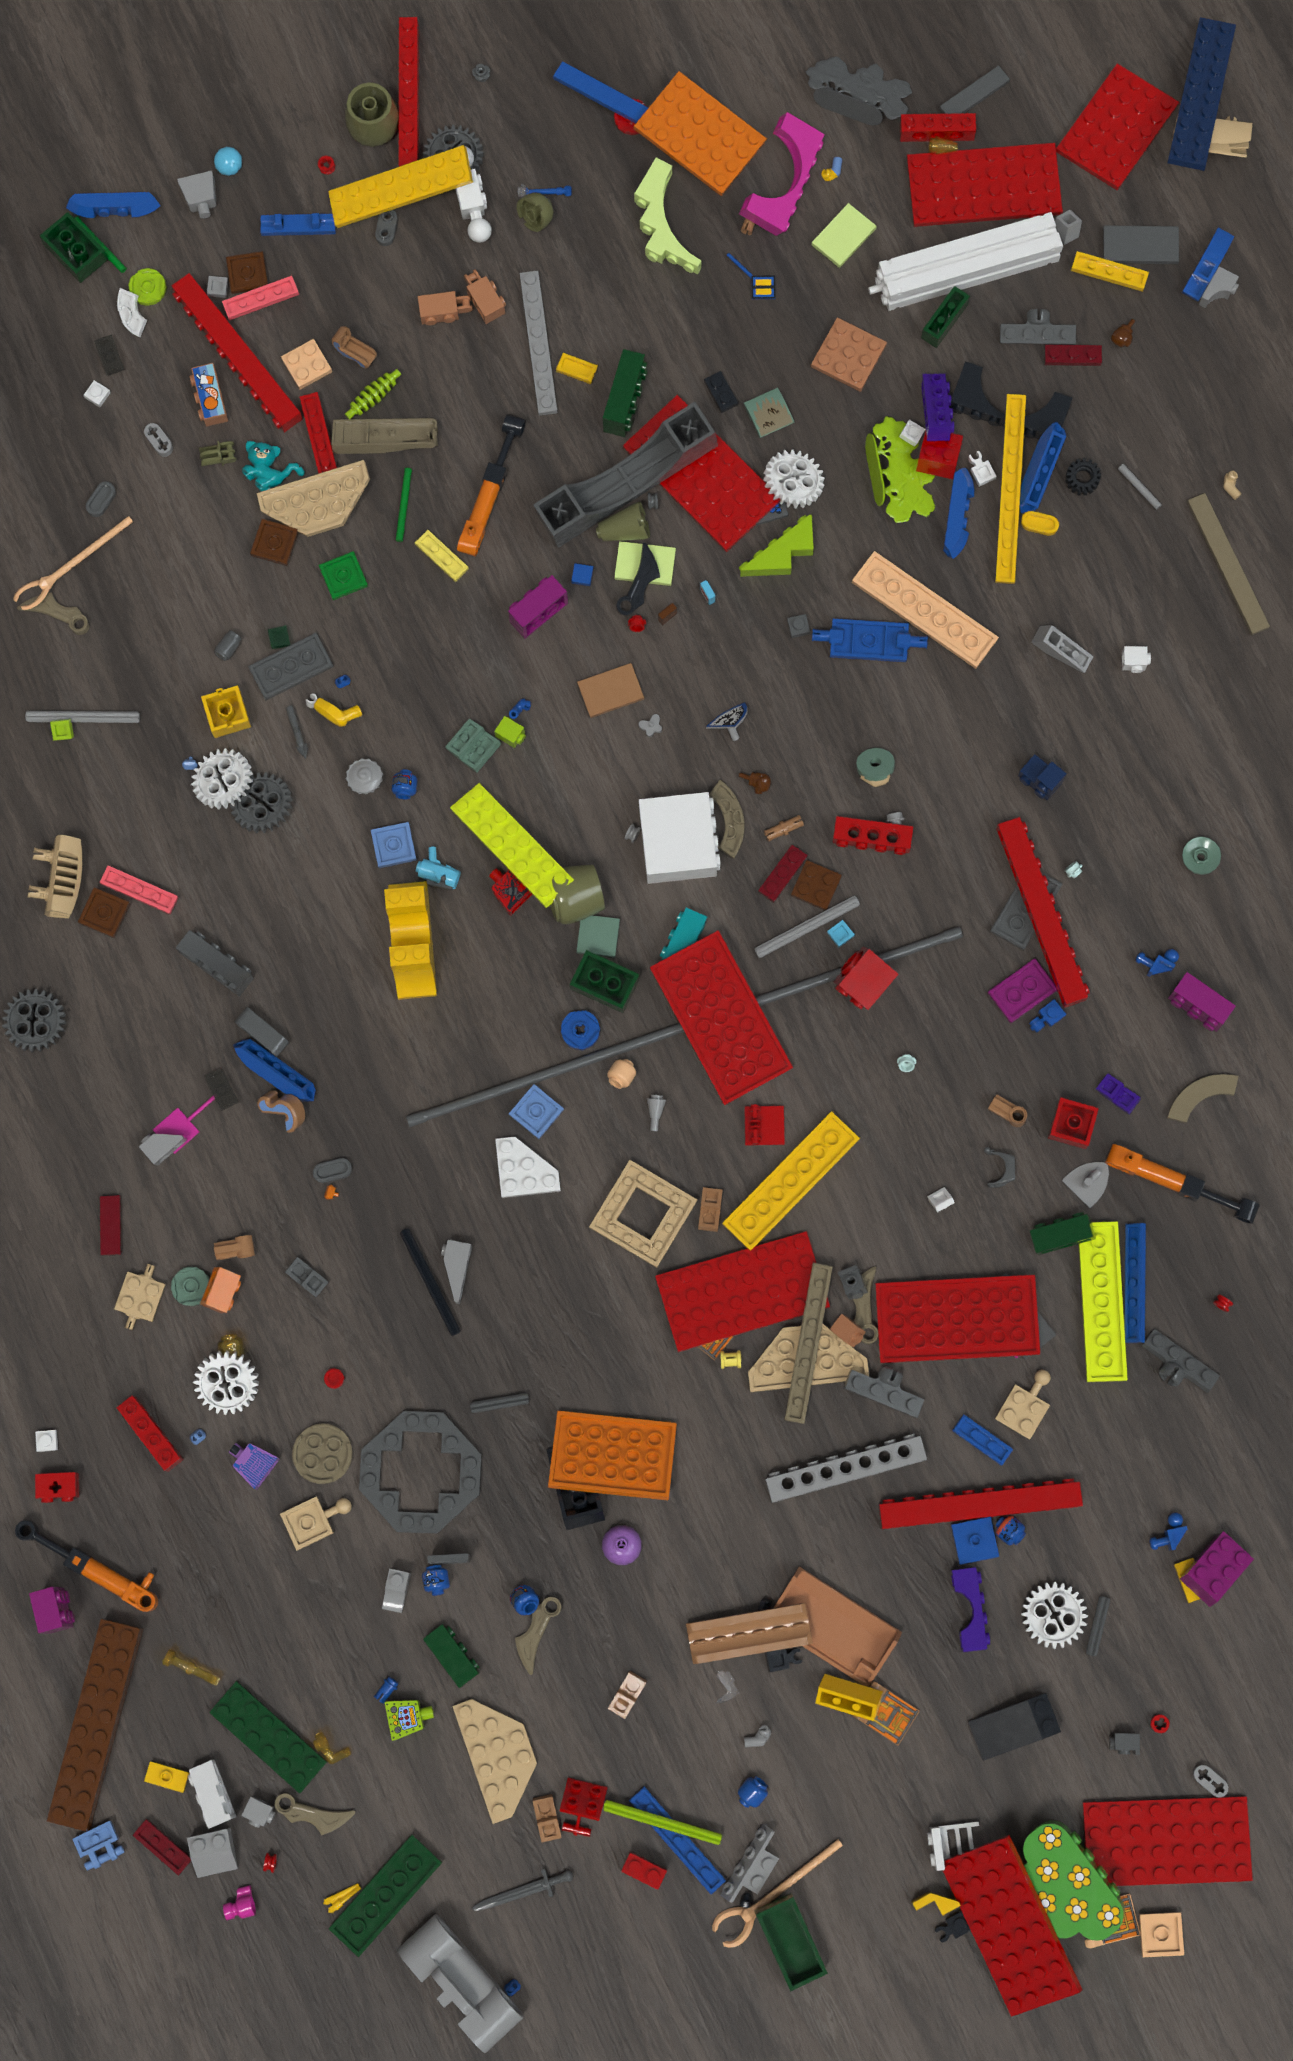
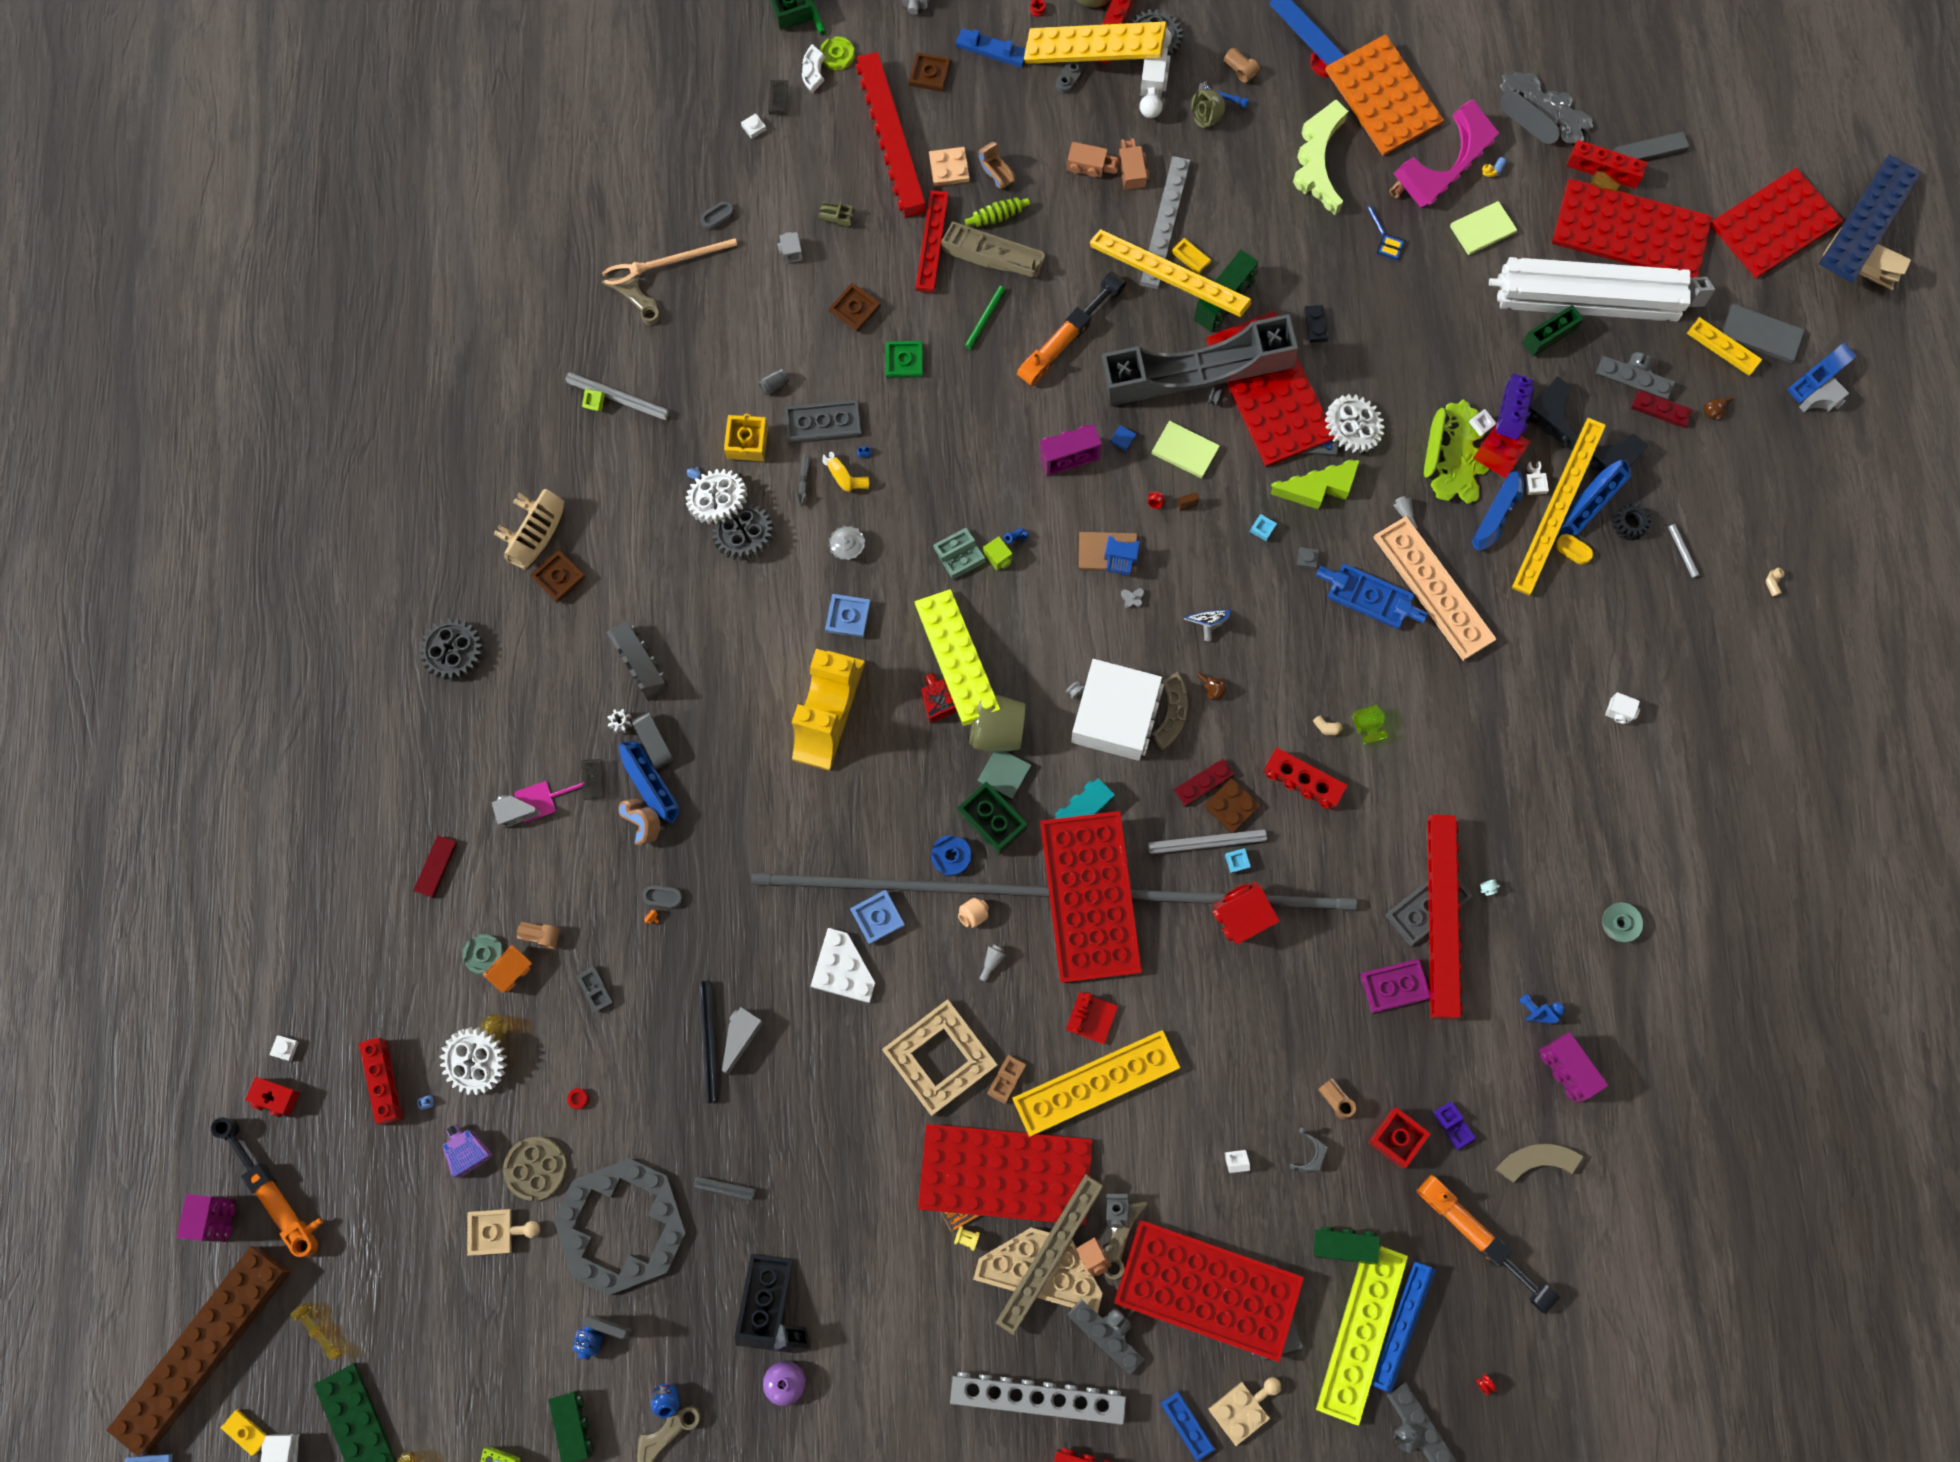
camera: 20 degrees right, 5 degrees down
(139, 890) = (598, 568): coral plate -> none
(139, 1297) = (431, 945): tan plate -> none
(161, 438) = (792, 183): light grey beam -> none
(187, 505) = (790, 247): none -> light grey brick
(208, 394) = (850, 160): brick -> none
(217, 286) = (898, 74): light grey plate -> none
(222, 1019) = (614, 721): none -> white gear
(260, 298) = (931, 96): coral plate -> none
(263, 456) = (875, 230): teal animal -> none
(279, 637) = (822, 391): clear green plate -> none
(317, 501) = (908, 285): tan plate -> none
(386, 1689) = (493, 1434): blue pin -> none
(396, 1590) = (545, 1336): light grey arch -> none
(404, 784) = (880, 564): blue head -> none
(436, 873) = (876, 657): medium azure piece -> none
(441, 555) = (1000, 374): light yellow tile -> none
(555, 155) = (1244, 68): none -> medium nougat piece
(564, 397) = (1171, 273): none -> yellow plate
(612, 1455) = (811, 1289): orange plate -> none
(613, 1505) = (791, 1339): none -> black slope
(625, 525) = (1180, 407): olive cone -> none
(625, 691) = (1121, 556): none -> blue piece
(646, 573) = (1182, 458): black piece -> none
(707, 592) = (1233, 495): medium azure tile -> none
(746, 612) = (1263, 527): none -> medium azure plate
(768, 412) = (1353, 357): slope -> none
(783, 828) = (1221, 739): medium nougat pin -> none
(849, 354) = (1448, 333): nougat plate -> none
(870, 543) = (1404, 507): none -> light grey cone
(871, 756) = (1335, 705): sand green tile -> none
(895, 818) = (1333, 771): light grey plate -> none
(906, 1063) = (1254, 1011): light aqua plate -> none
(910, 758) = (1368, 721): none -> clear neon green brick
(1042, 777) = (1490, 786): dark blue brick -> none
(1050, 1013) = (1415, 1019): blue plate -> none
(1062, 648) = (1554, 671): light grey slope -> none
(1088, 1181) = (1392, 1202): light grey shield -> none
(1228, 564) = (1745, 654): dark tan tile -> none

